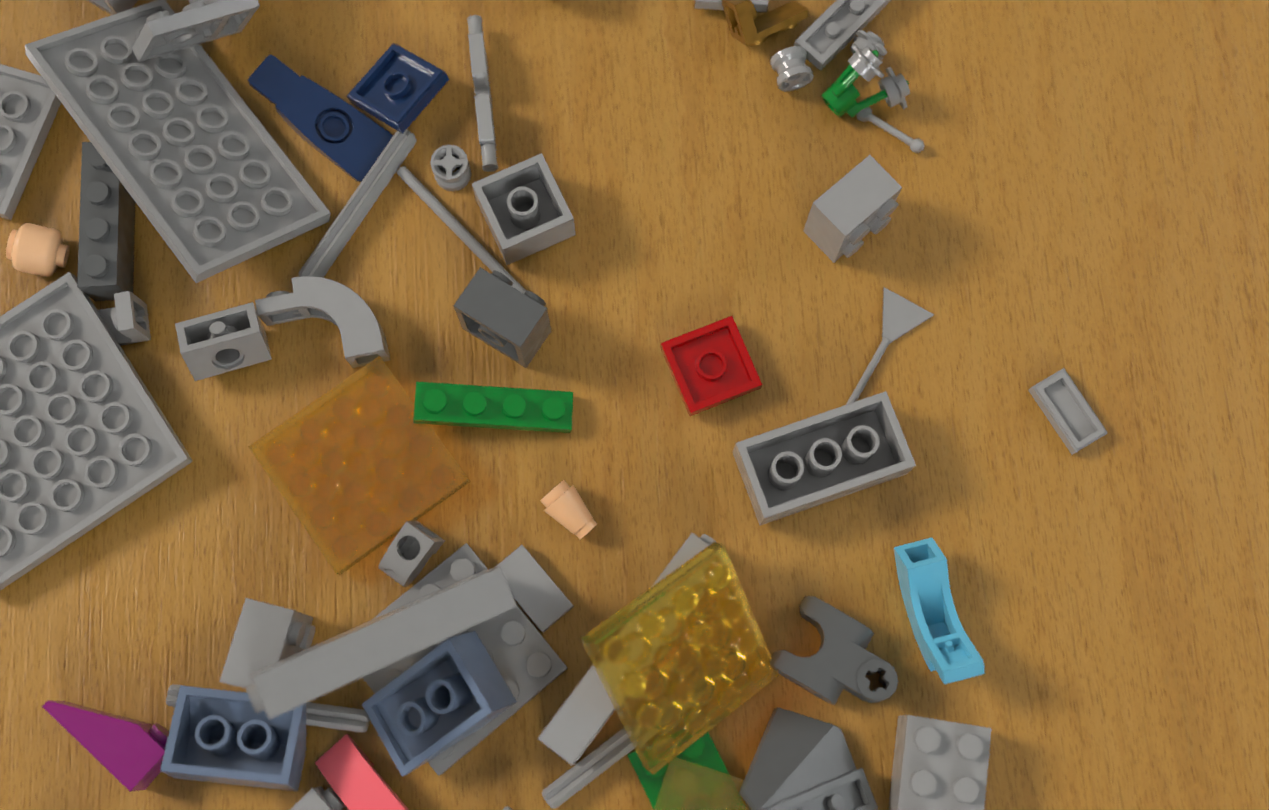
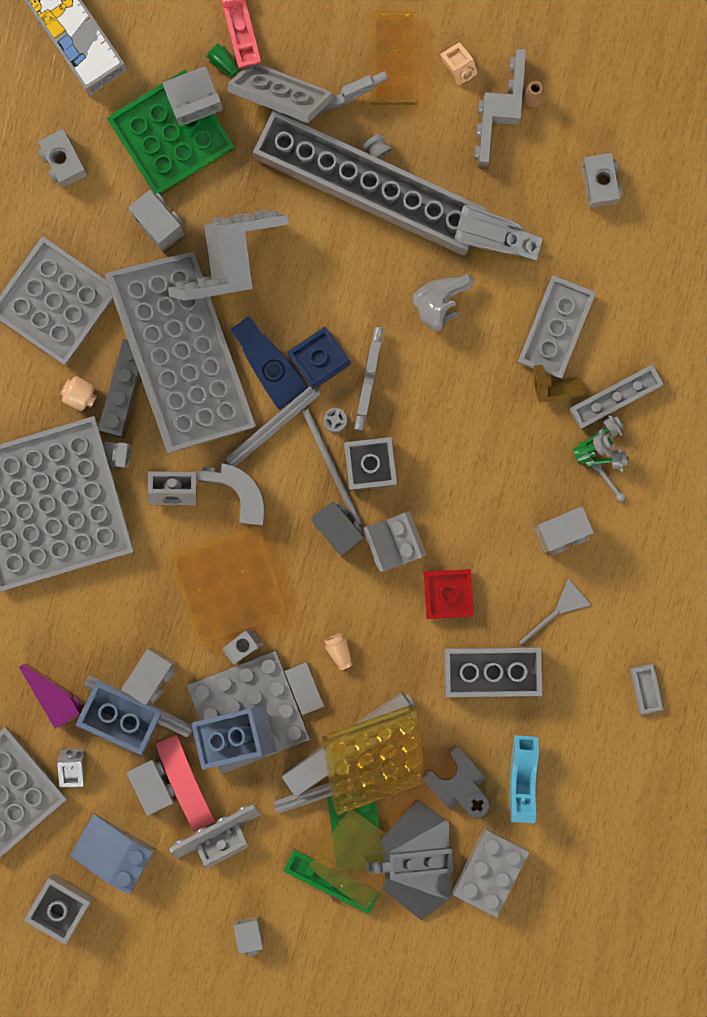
camera: 20 degrees right, 10 degrees up
(379, 642) = (214, 698): light grey brick -> none
(493, 407) = (315, 577): green plate -> none
(601, 310) = (394, 541): none -> light grey bracket
(791, 68) = (561, 424): light grey wheel -> none

